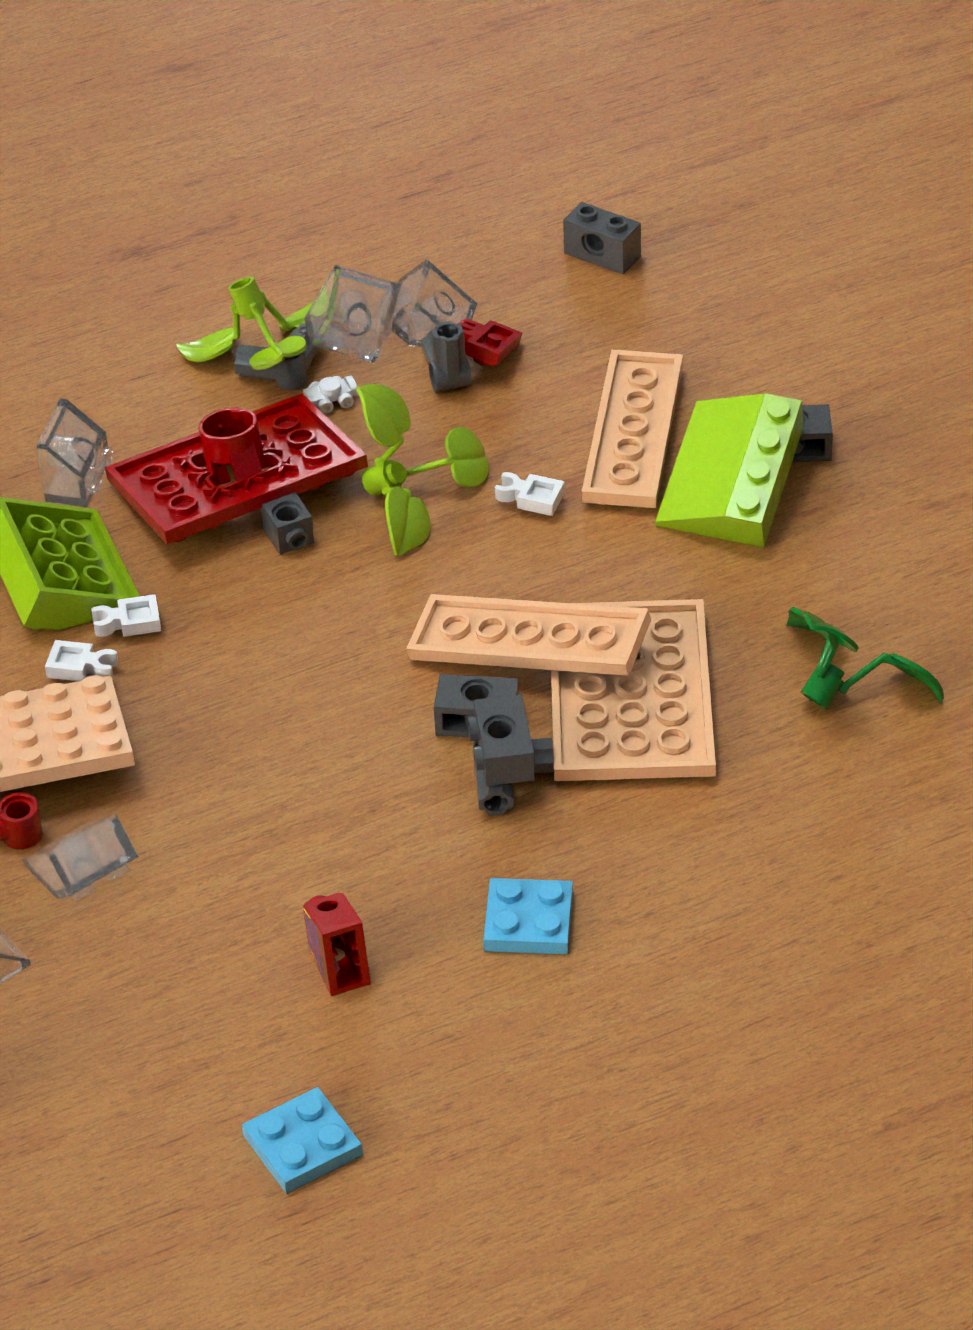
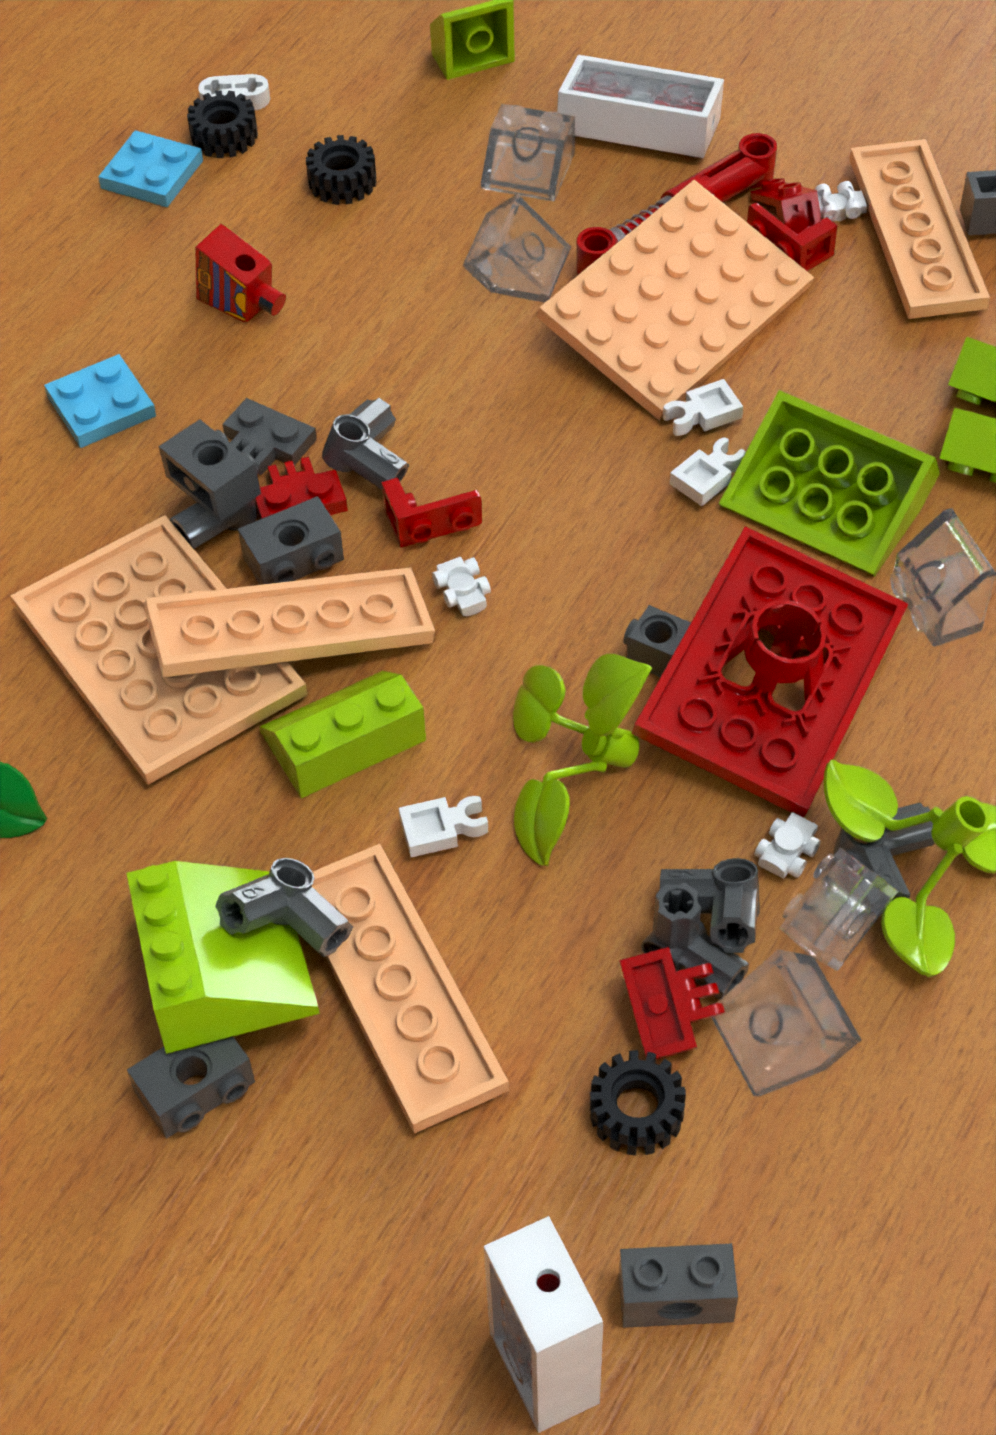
camera: 145 degrees right, 10 degrees up
(144, 1045) = (325, 174): none -> black tyre
(155, 1182) = (251, 85): none -> white beam
(199, 1162) = (222, 124): none -> black tyre
(365, 675) = (431, 520): none -> red bracket
(365, 751) = (355, 445): none -> dark grey piece
(378, 629) = (461, 586): none -> white piece
(405, 356) = (728, 894): none -> dark grey piece
(422, 817) = (268, 434): none -> dark grey hinge
(433, 756) = (299, 487): none -> red hinge
(545, 564) = (346, 731): none -> lime slope
(547, 318) = (631, 1130): none -> black tyre
(675, 464) = (285, 899): none -> dark grey piece
(696, 202) = (544, 1323): none -> white brick

